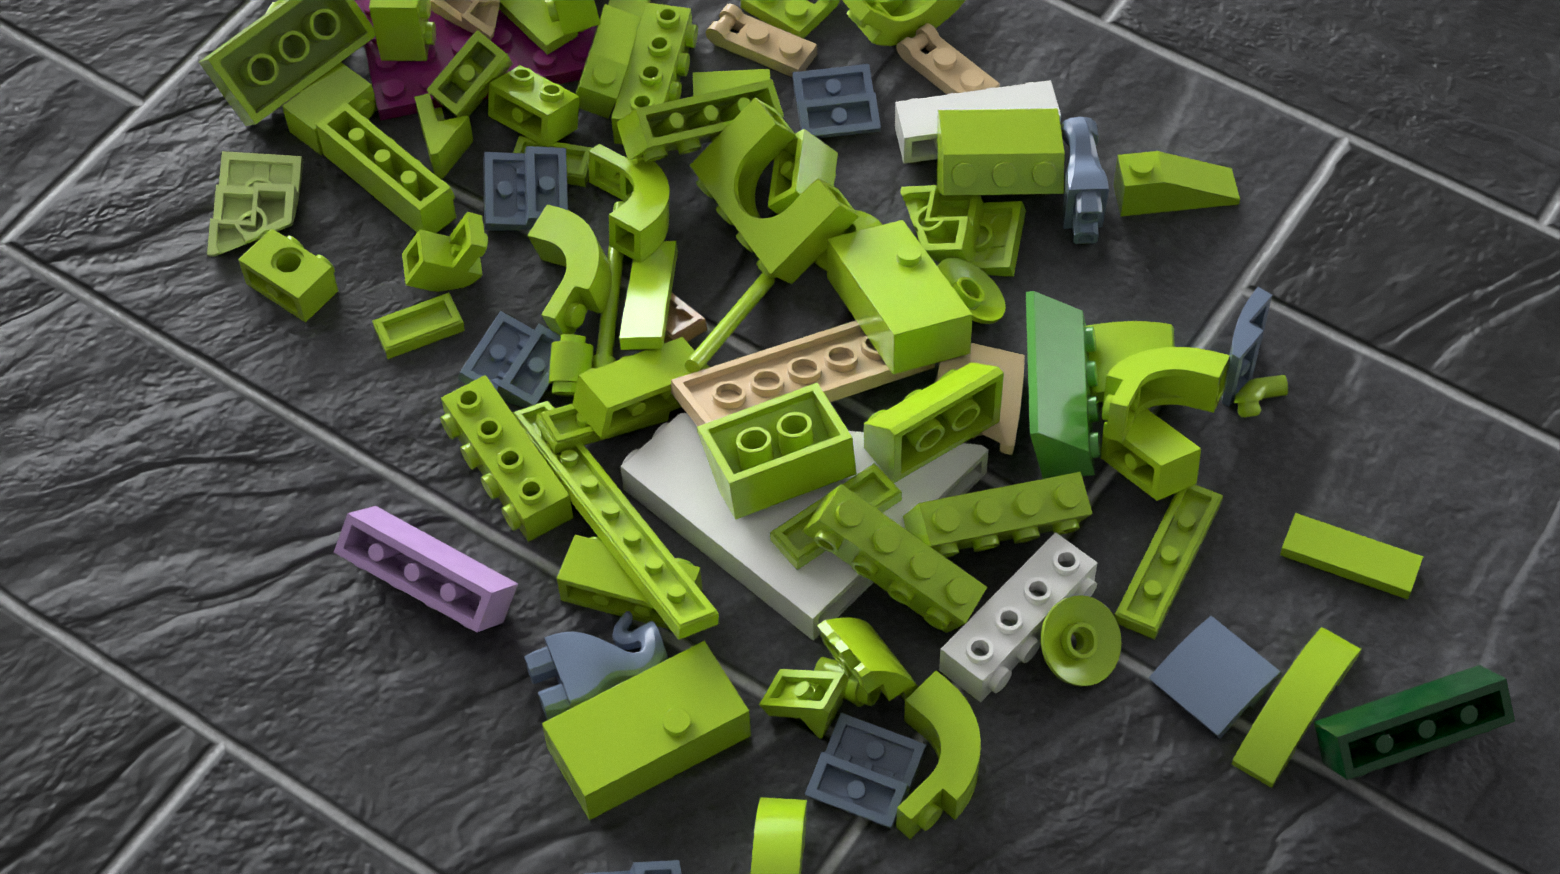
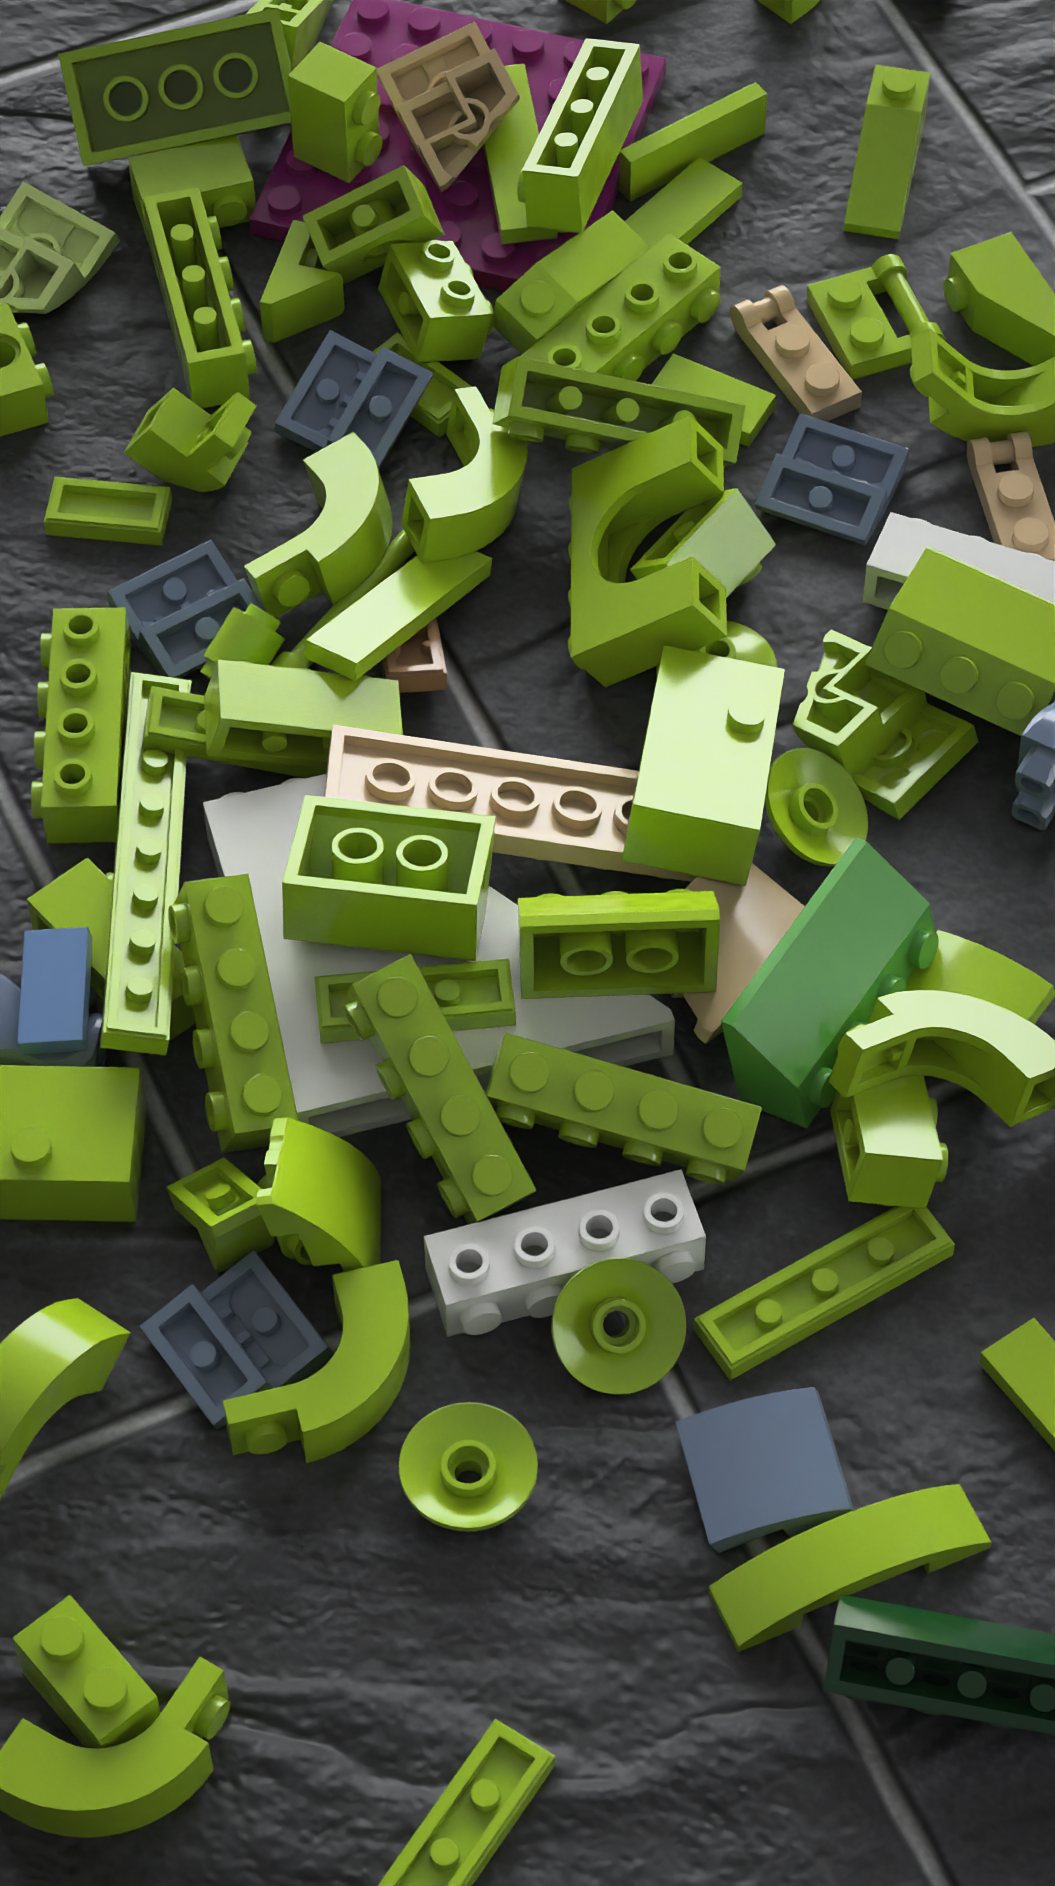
camera: 30 degrees right, 0 degrees up
(618, 622) = (55, 990): none -> medium blue tile
(729, 323) = (473, 694): lime bar -> none
(738, 578) = (232, 1009): none -> lime brick
(1060, 750) = (462, 1440): none -> lime dish

